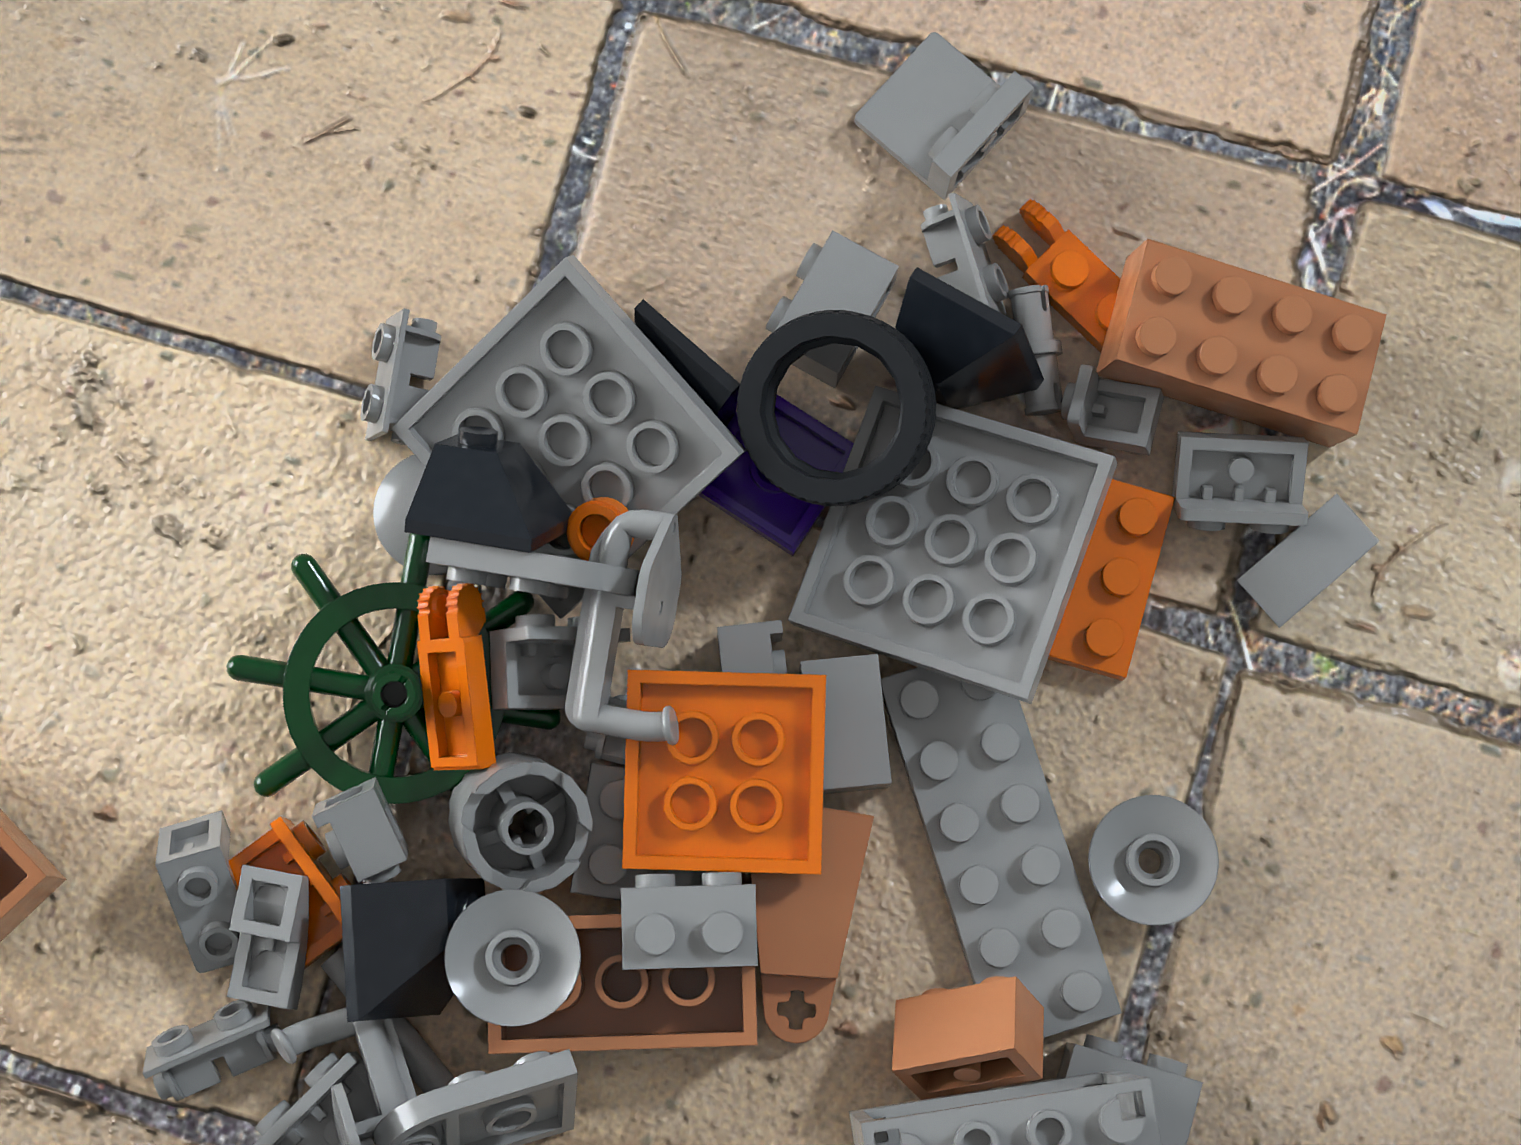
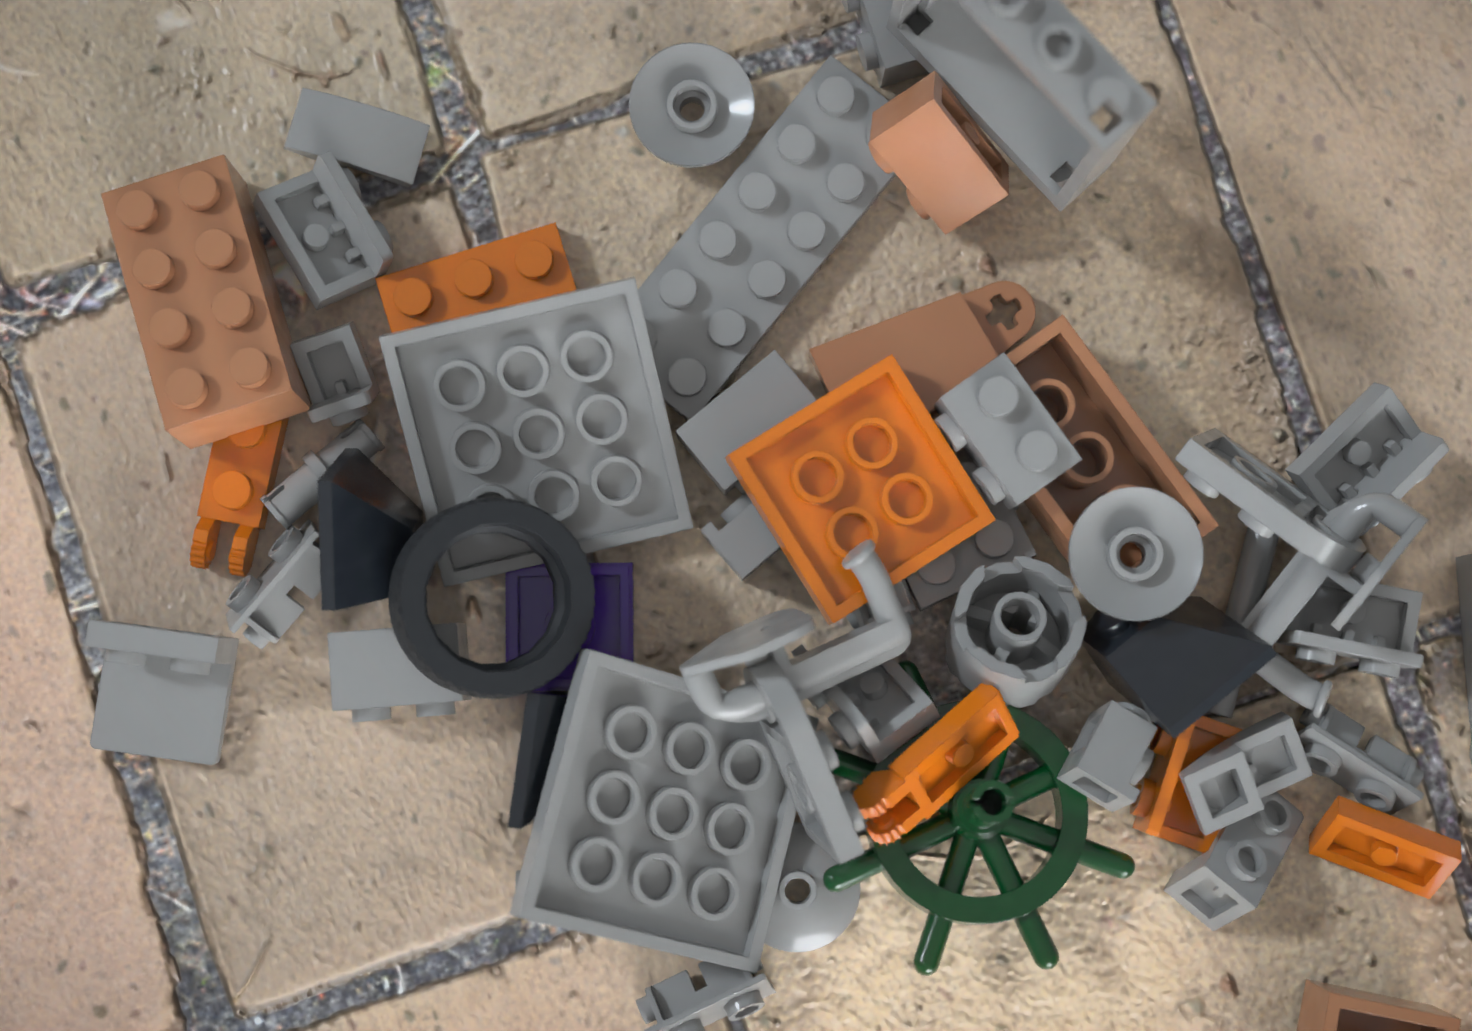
camera: 120 degrees left, 5 degrees up
(124, 1019) = (1385, 847): none -> orange plate
(486, 495) = (769, 842): black slope -> none
(589, 522) = (727, 739): orange tile -> none

